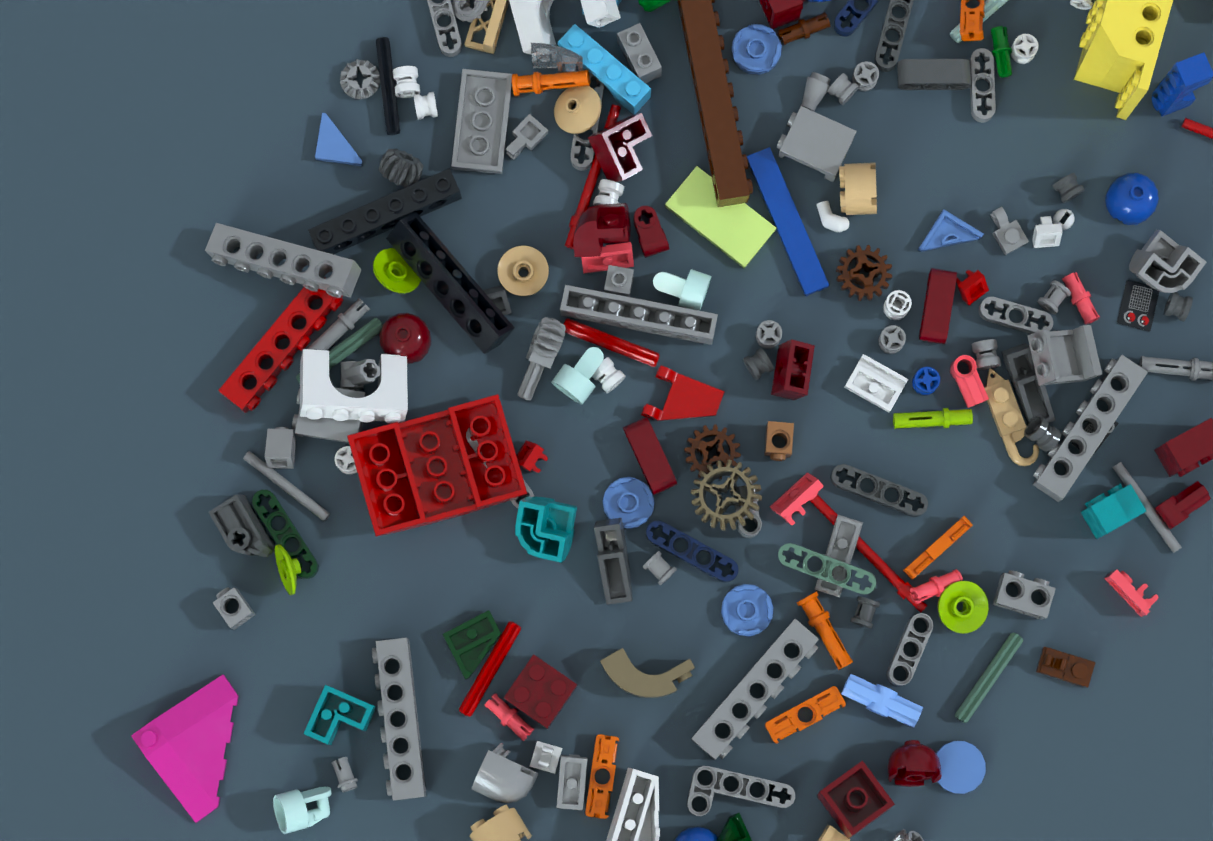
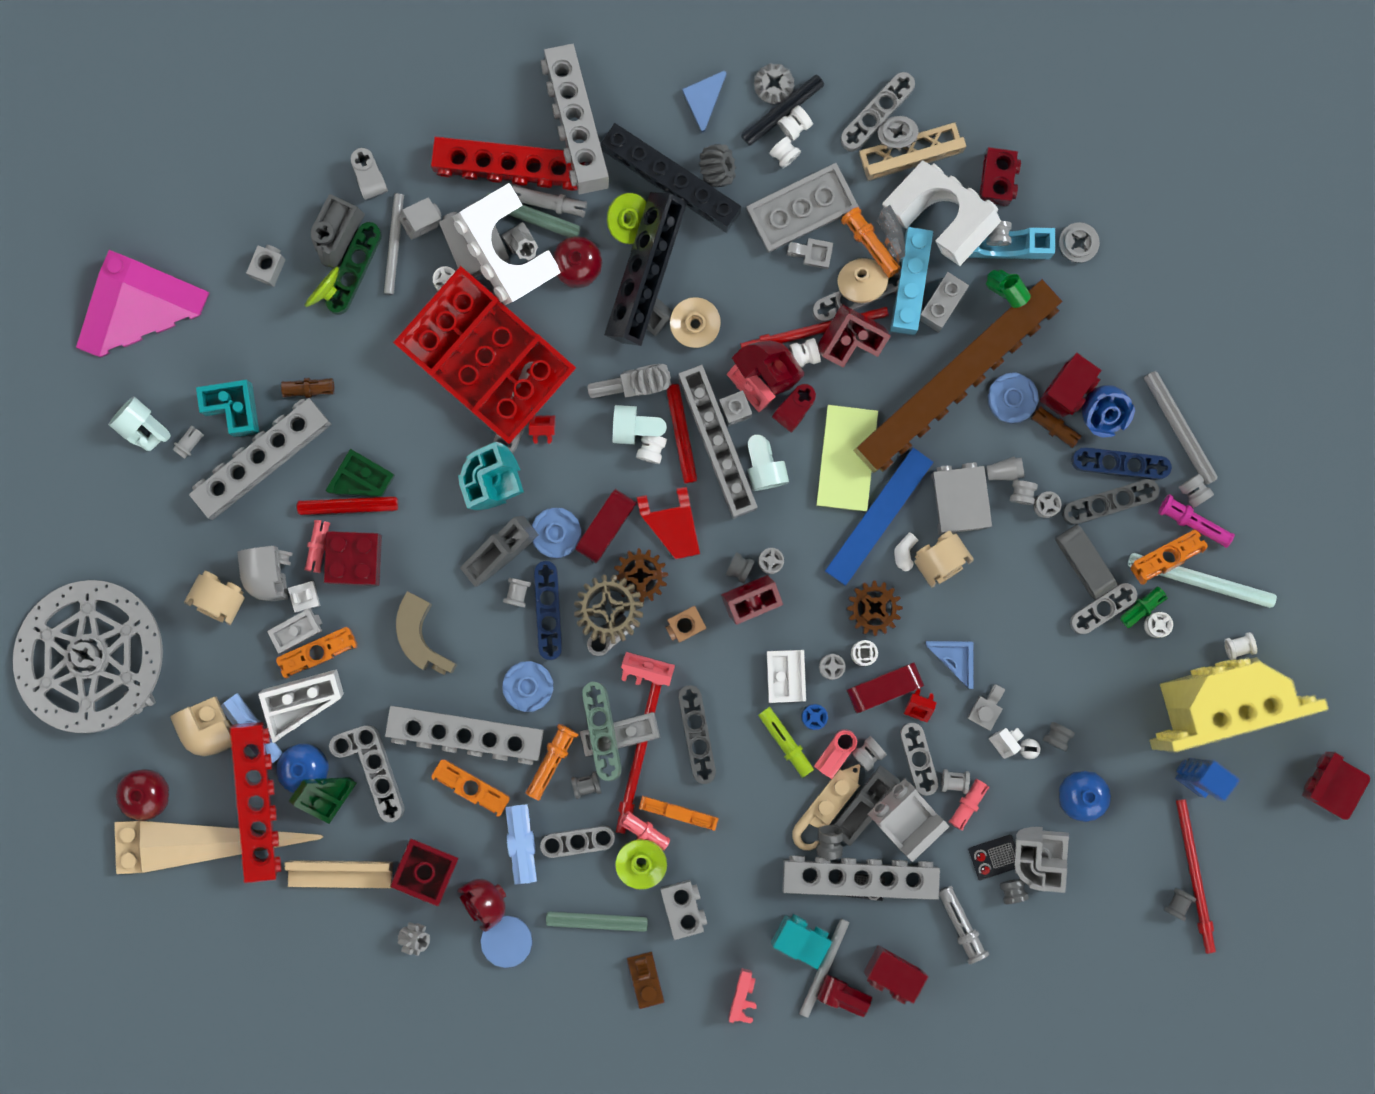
camera: 50 degrees right, 5 degrees up
(216, 470) = (368, 177): none -> light grey piece
(364, 639) = (307, 387): none -> reddish brown pin

